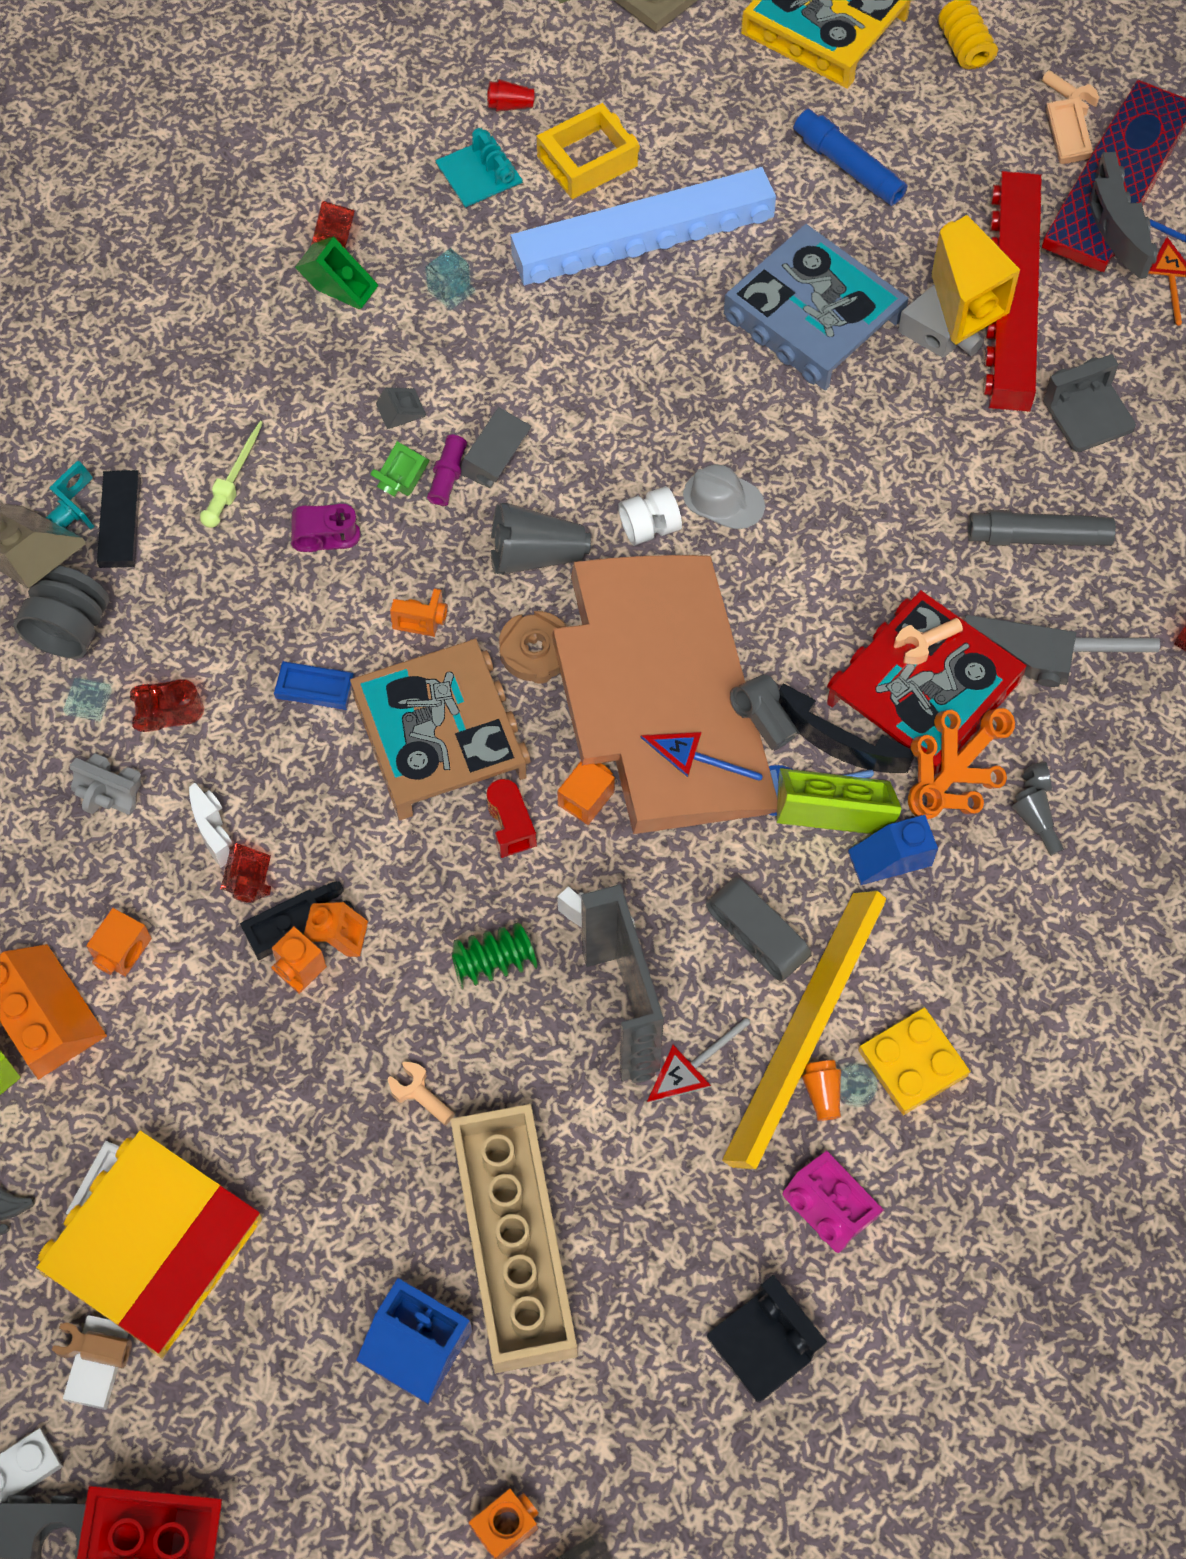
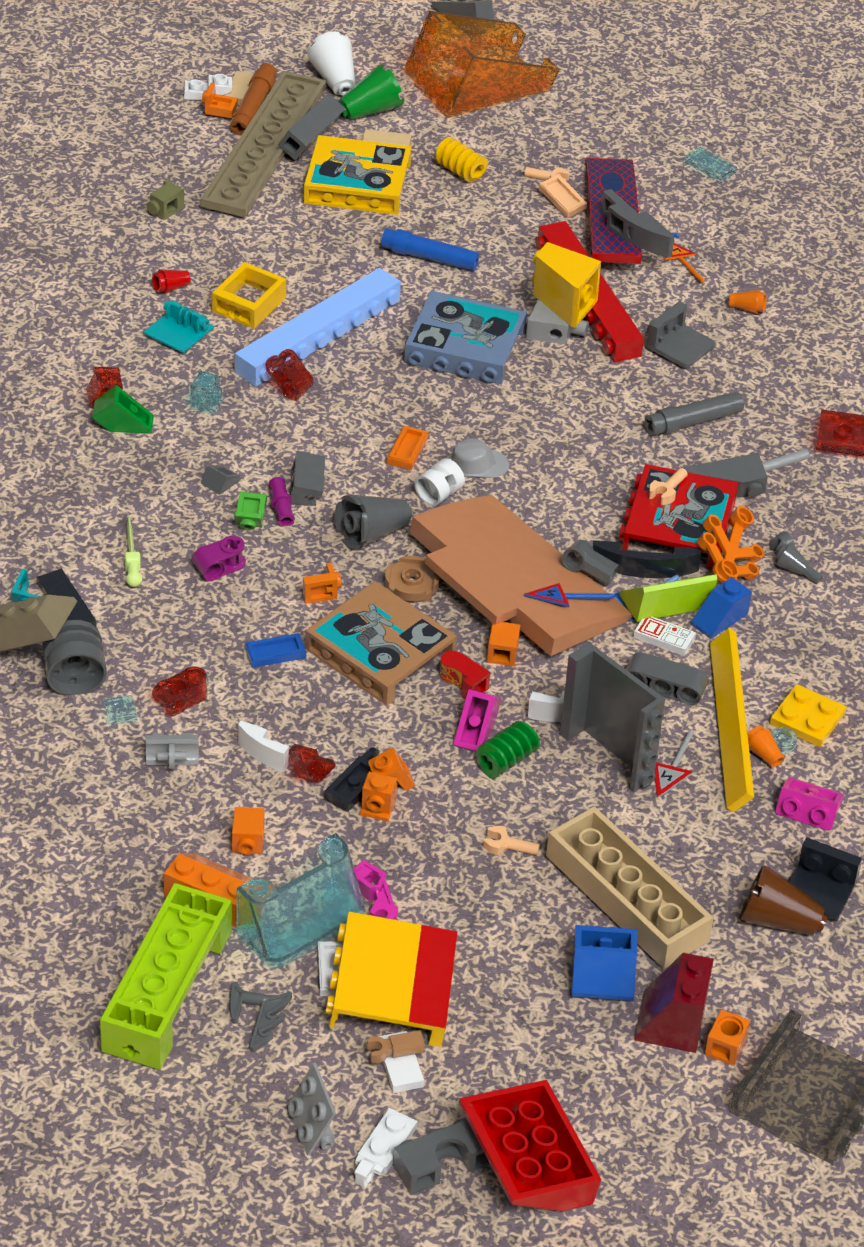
camera: 30 degrees left, 20 degrees down
(107, 1100) = (308, 910): none -> clear light blue windscreen
(213, 1123) = (383, 904): none -> dark pink piece
(459, 1454) = (676, 1004): none -> dark red slope
(486, 892) = (477, 719): none -> dark pink slope
(564, 292) = (291, 375): none -> clear red piece
(649, 444) = (407, 447): none -> orange tile
(690, 1356) = (781, 905): none -> reddish brown cone
(802, 857) = (665, 635): none -> white tile

